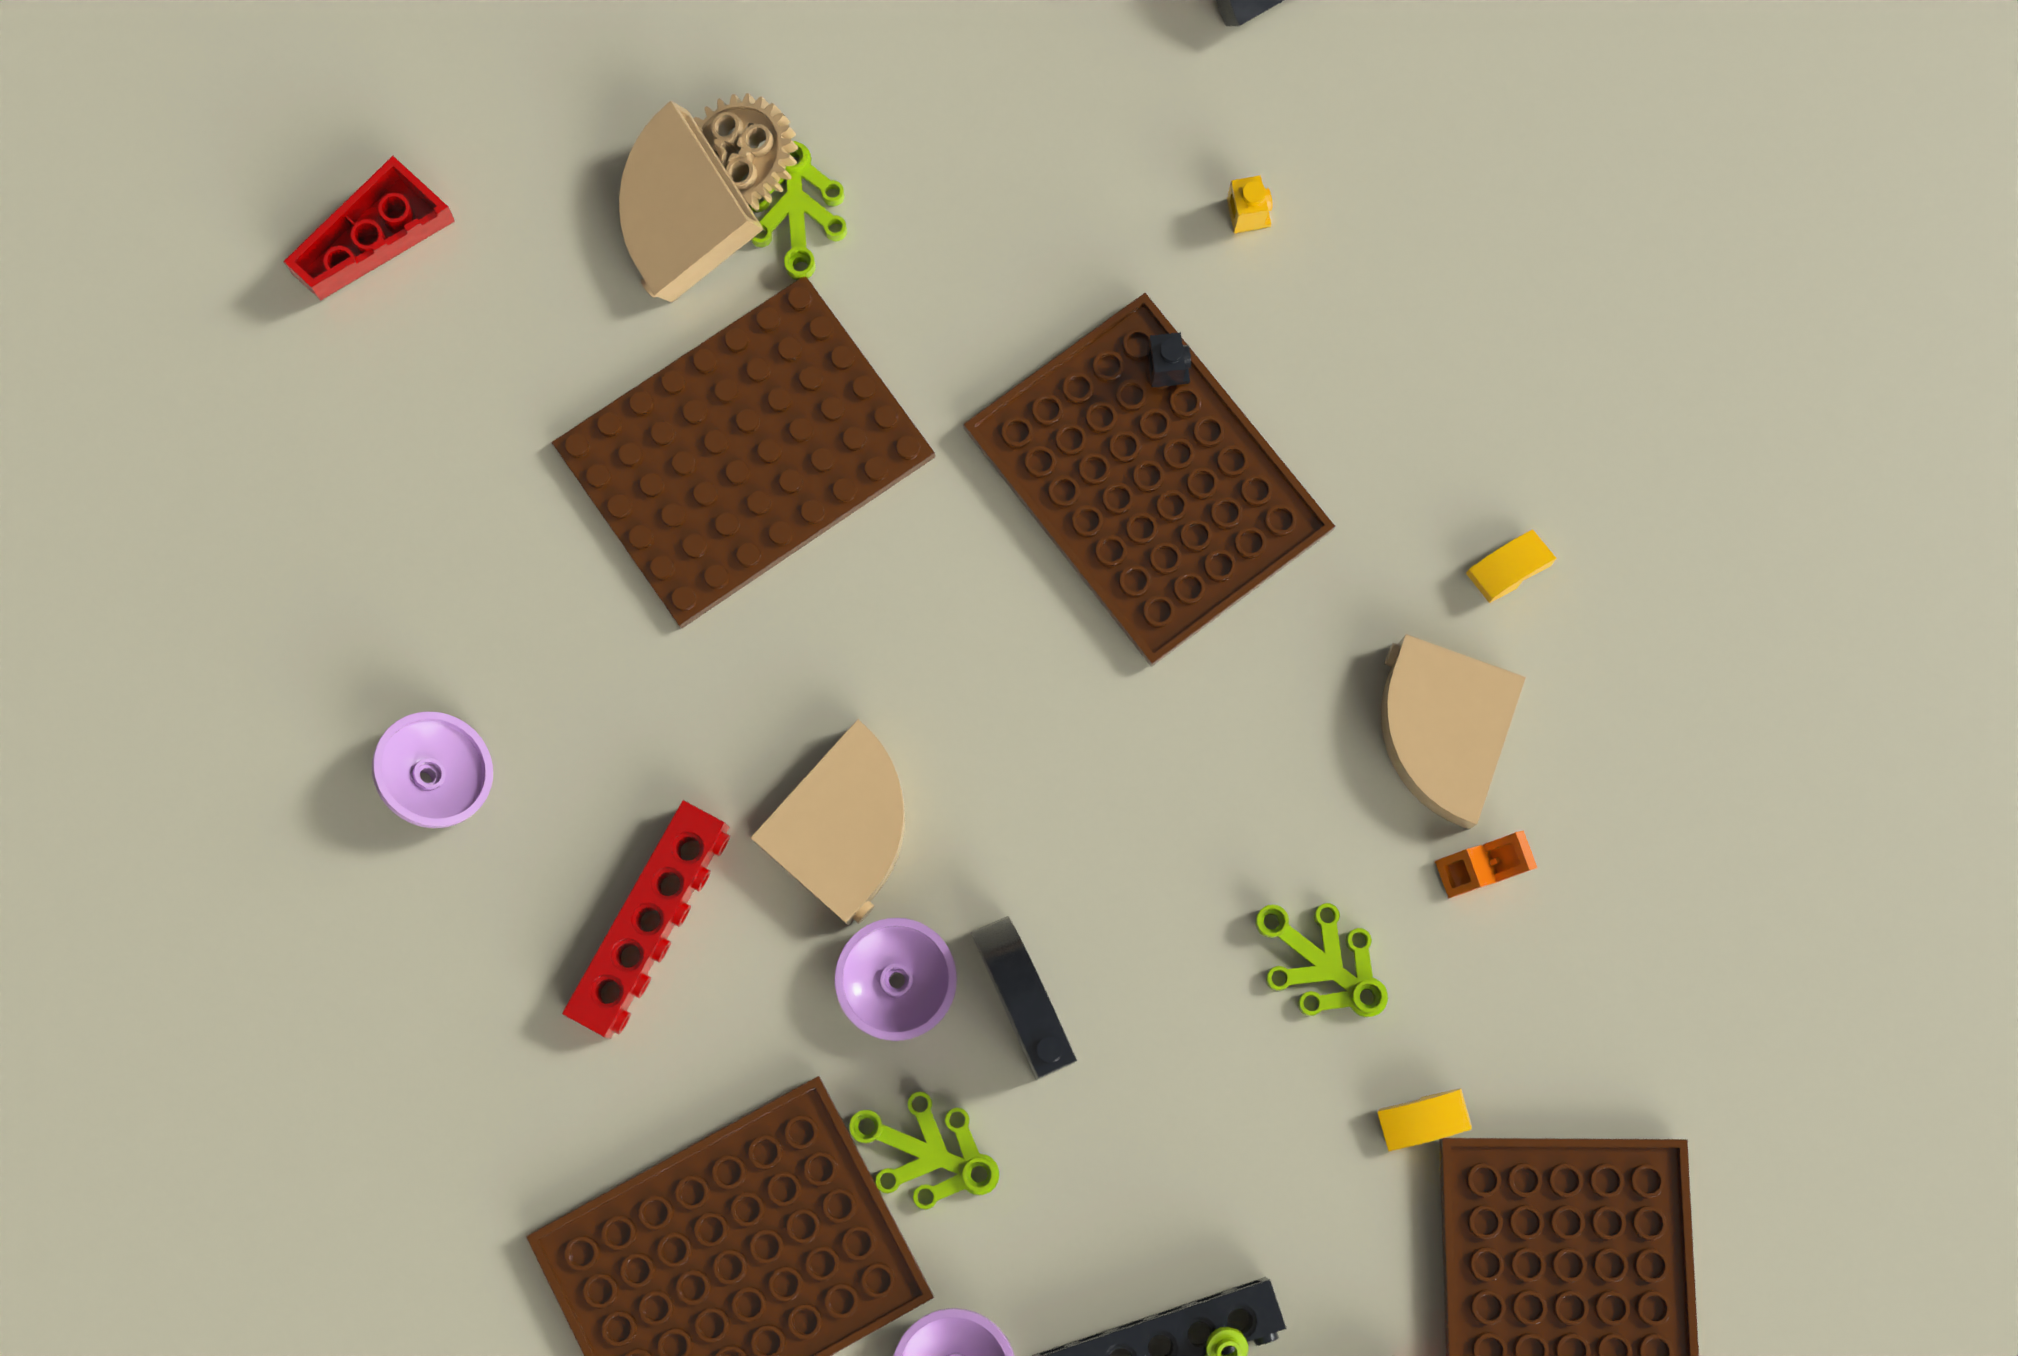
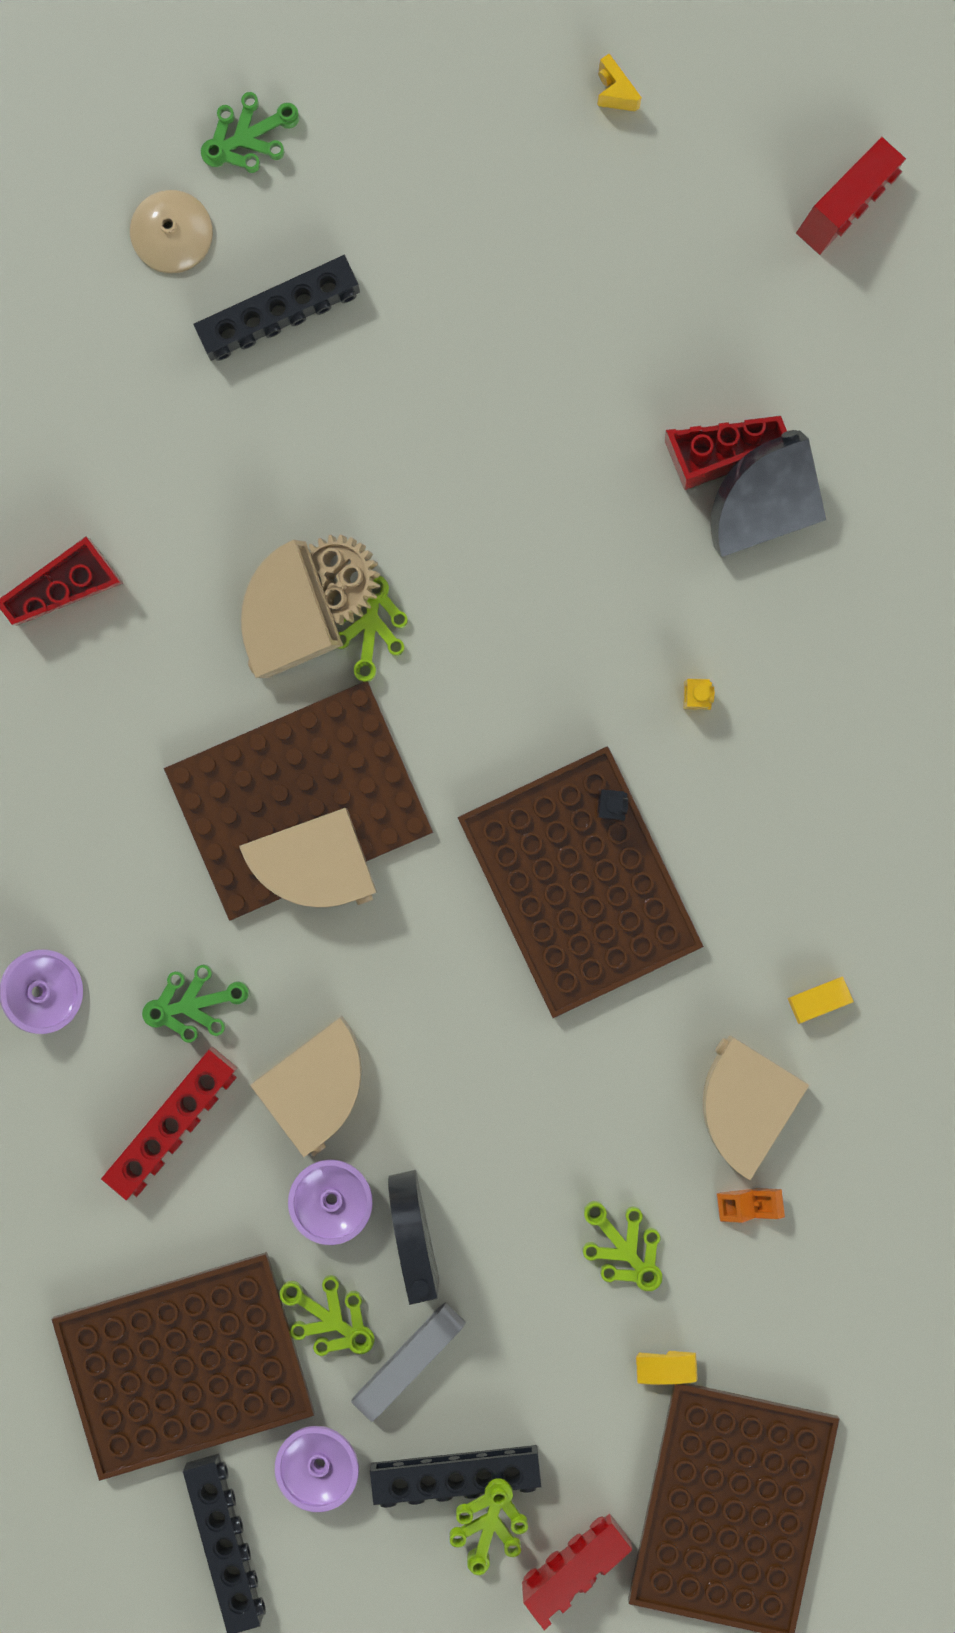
camera: 10 degrees right, 10 degrees up
(646, 750) = (190, 1005): none -> bright green plant
(779, 517) = (313, 862): none -> tan brick
(1054, 1191) = (408, 1362): none -> light grey beam

